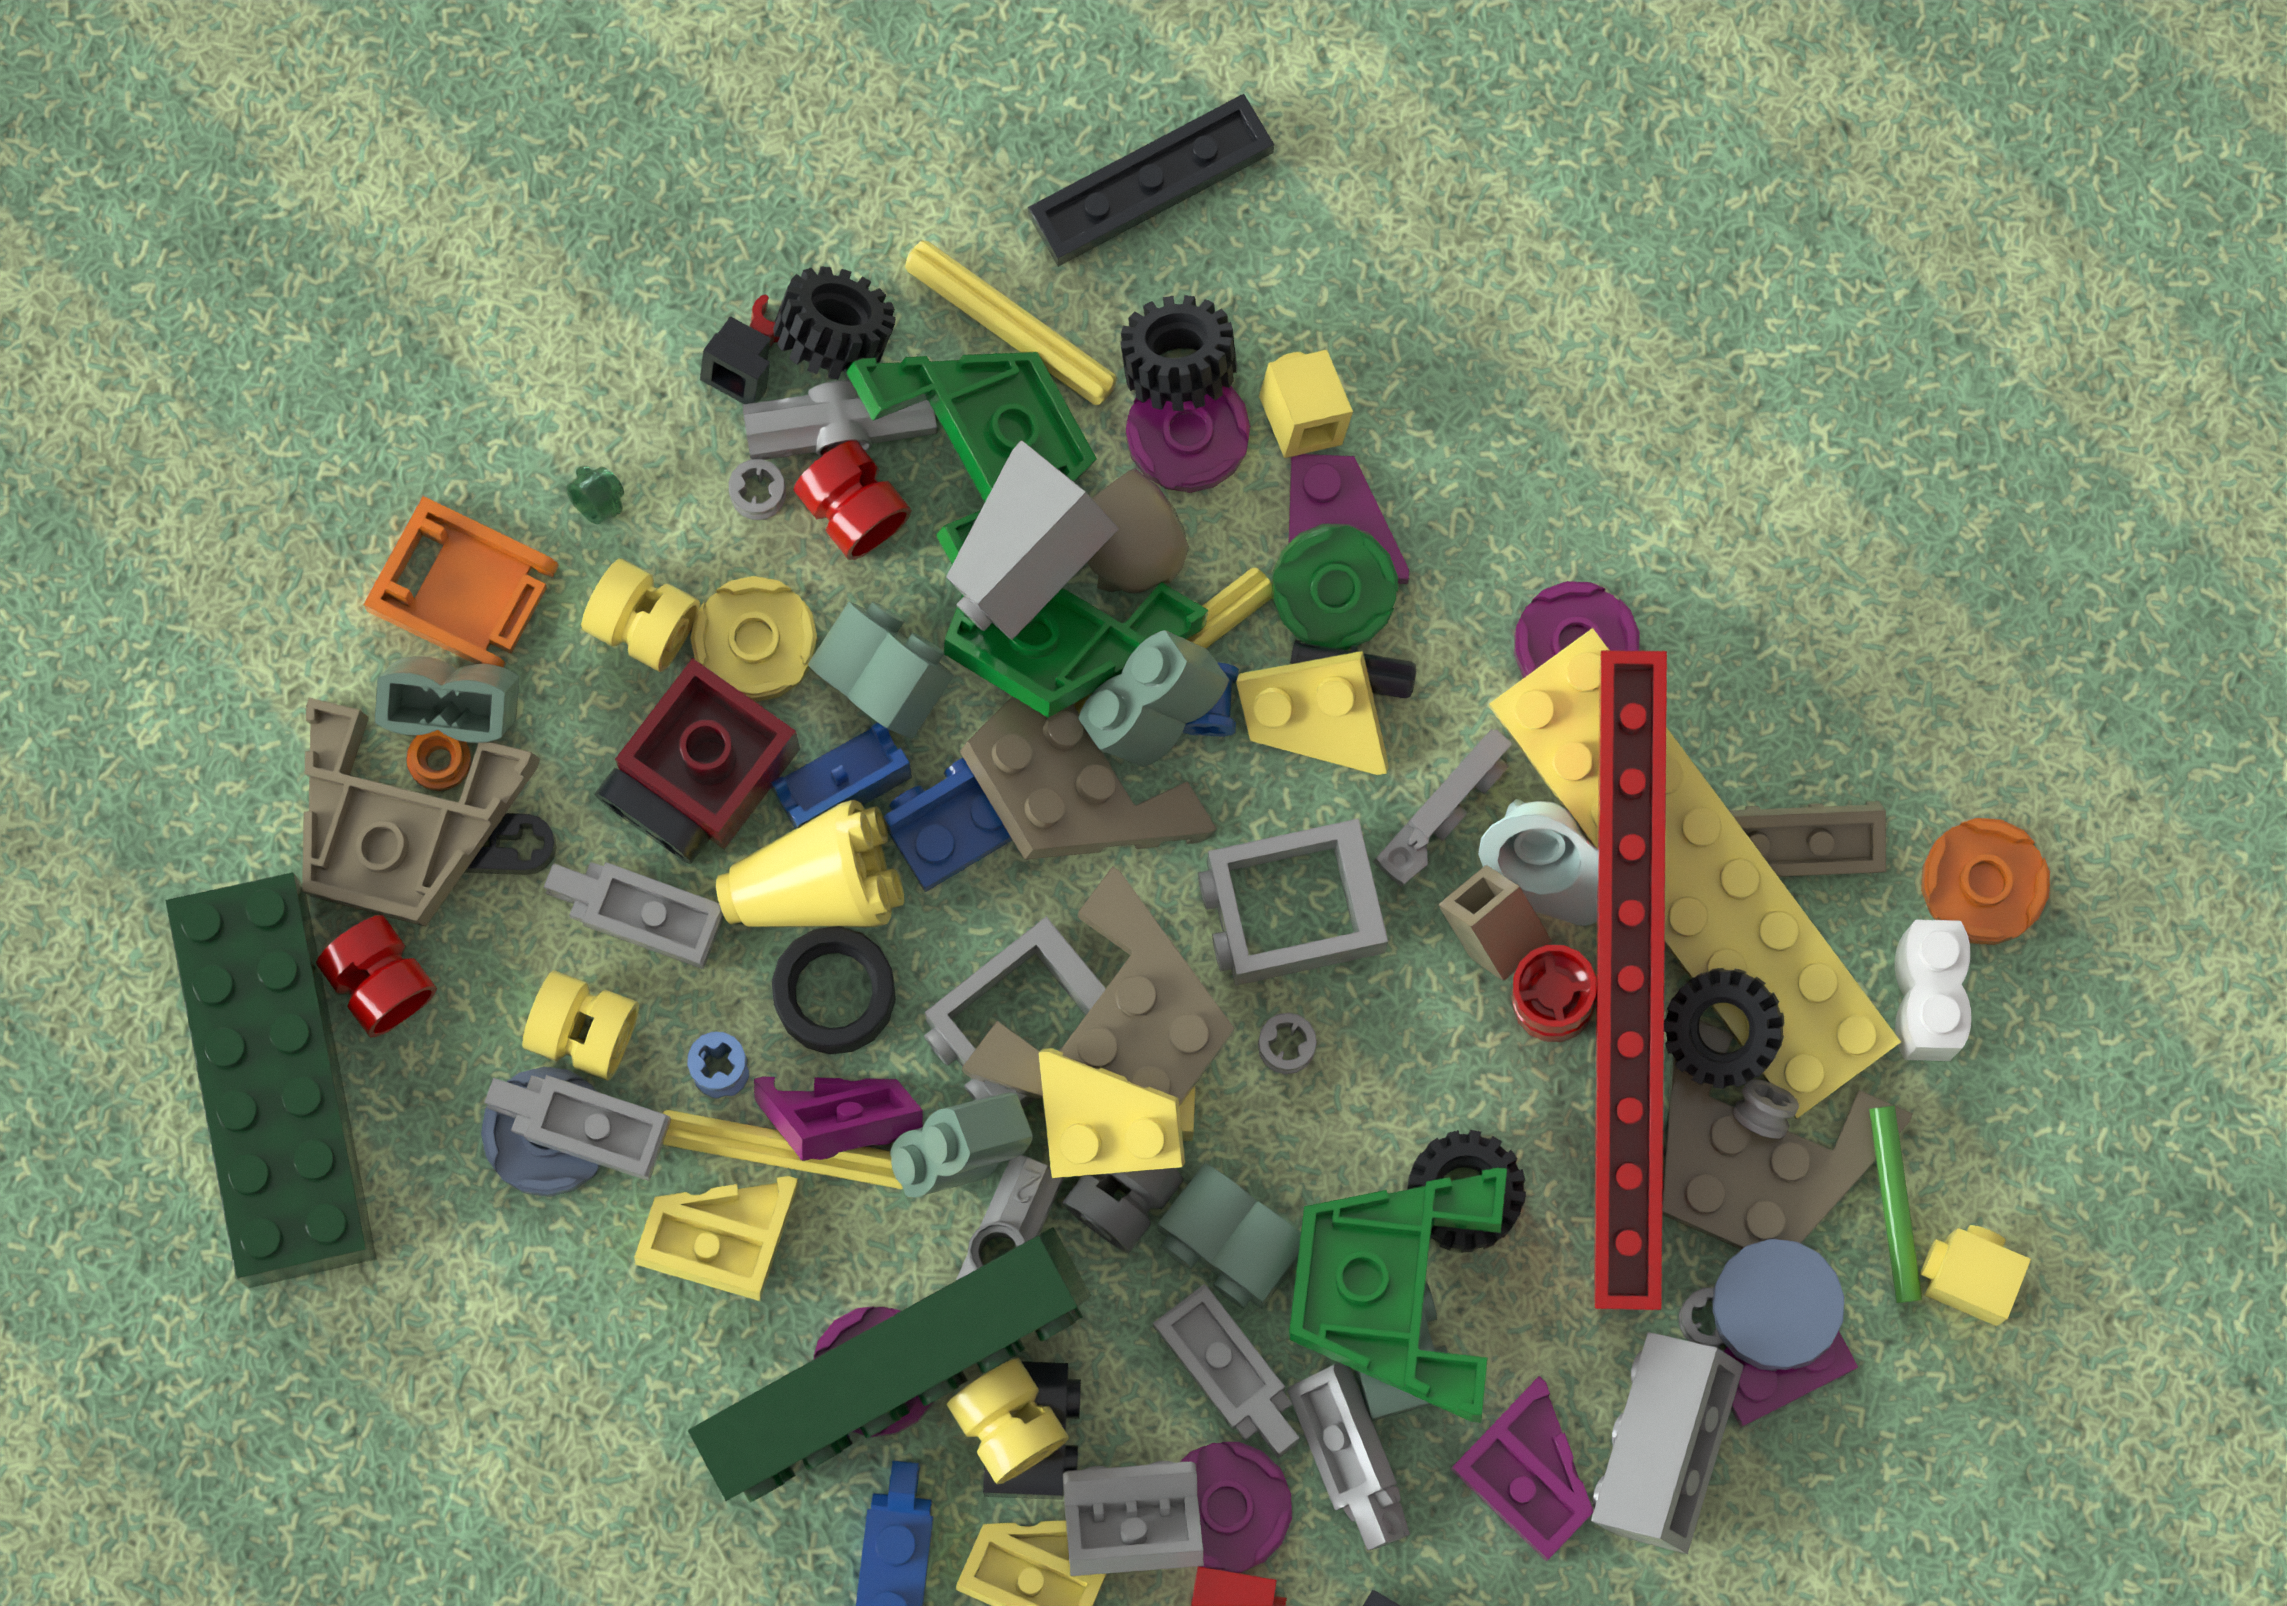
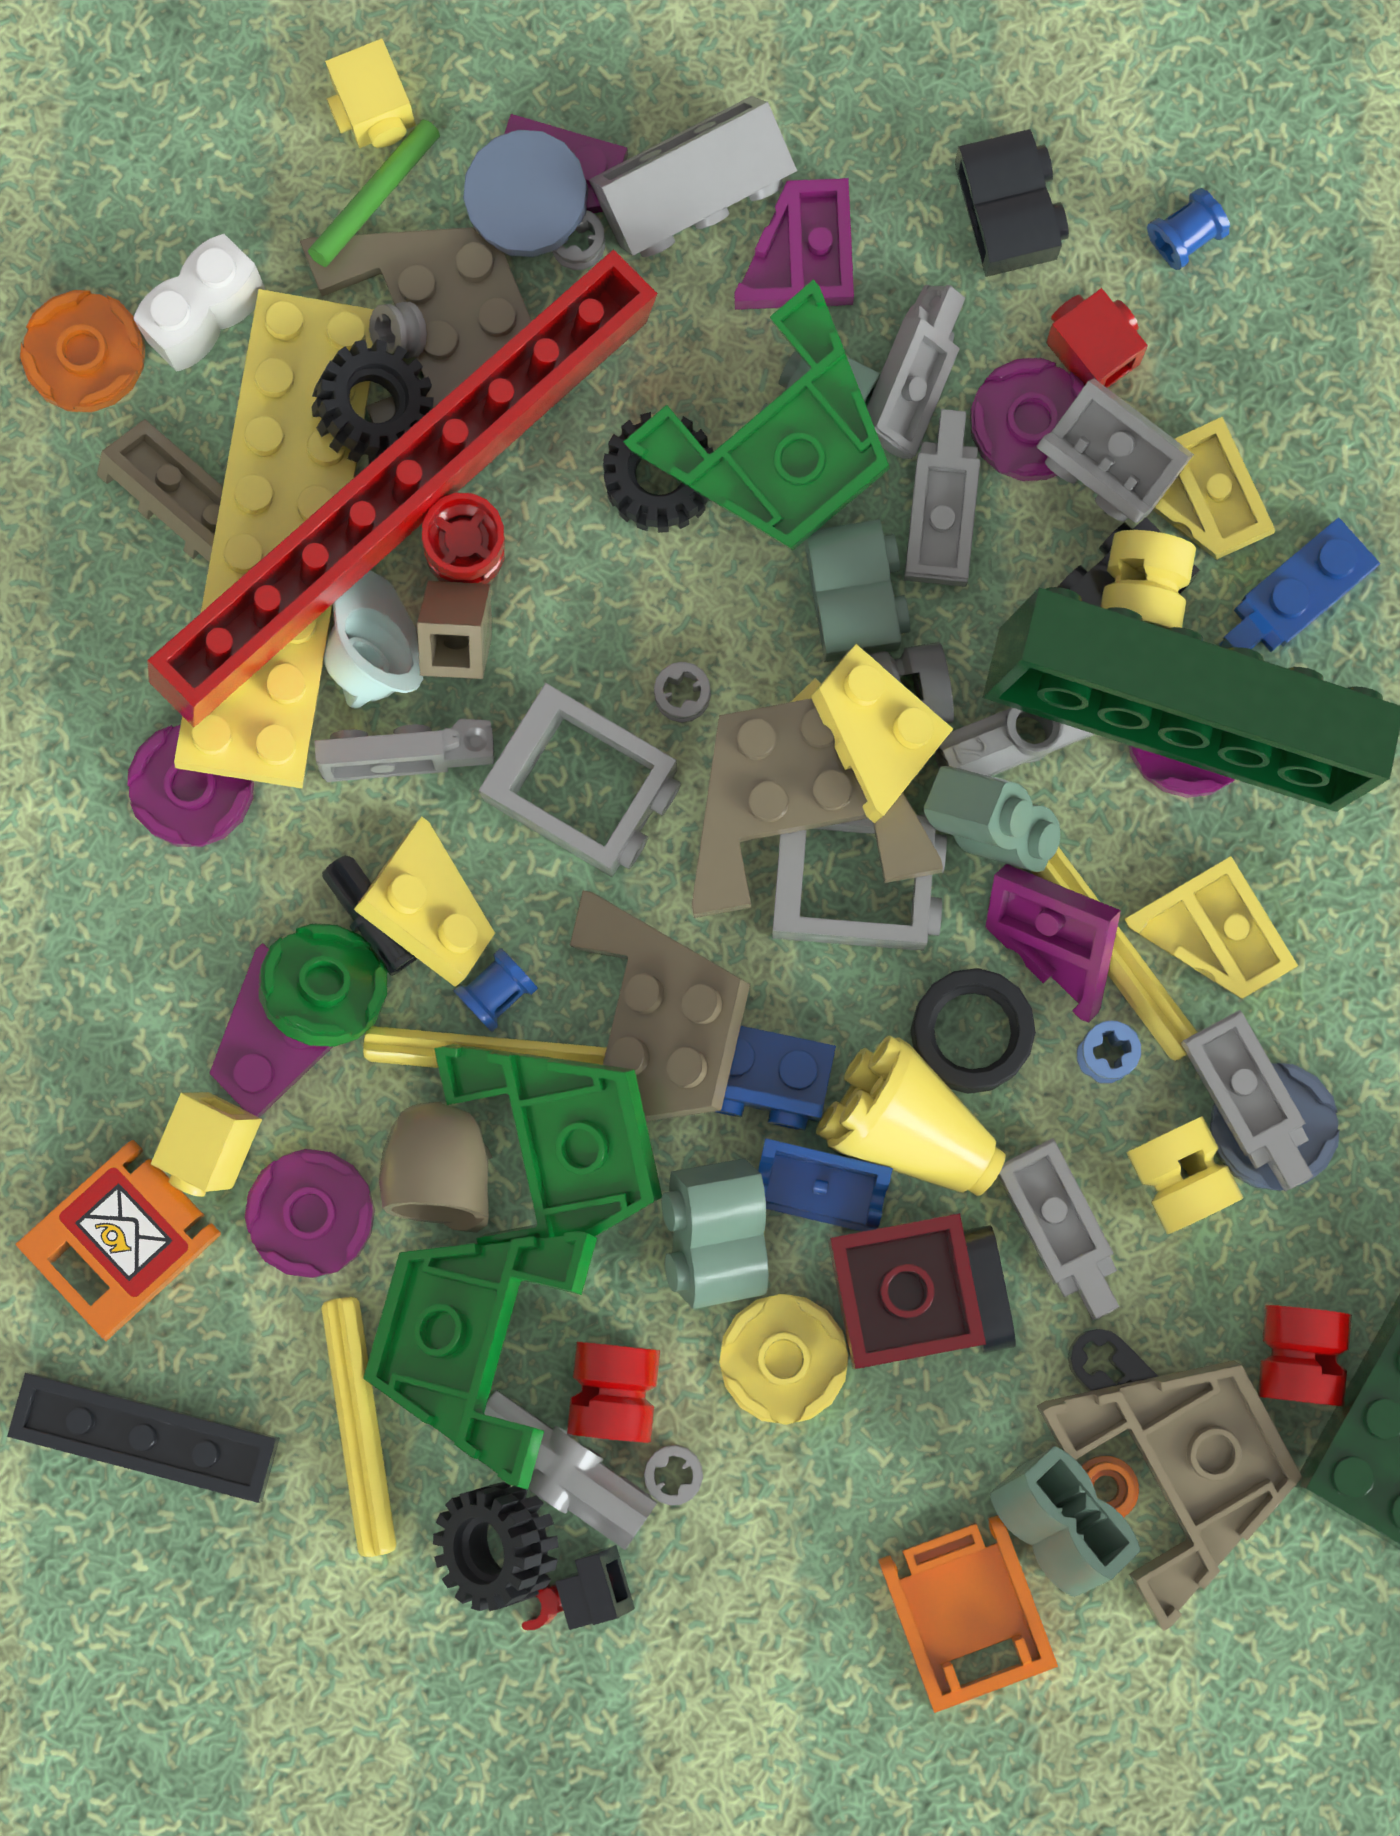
camera: 130 degrees left, 5 degrees up
(596, 493) = (798, 1588): clear green plate -> none
(635, 612) = (864, 1475): light yellow wheel -> none
(1026, 543) = (526, 1210): light grey slope -> none
(1153, 698) = (540, 1016): sand green brick -> none
(1183, 377) = (237, 1294): black tyre -> none
(1301, 296) = (126, 1231): none -> container

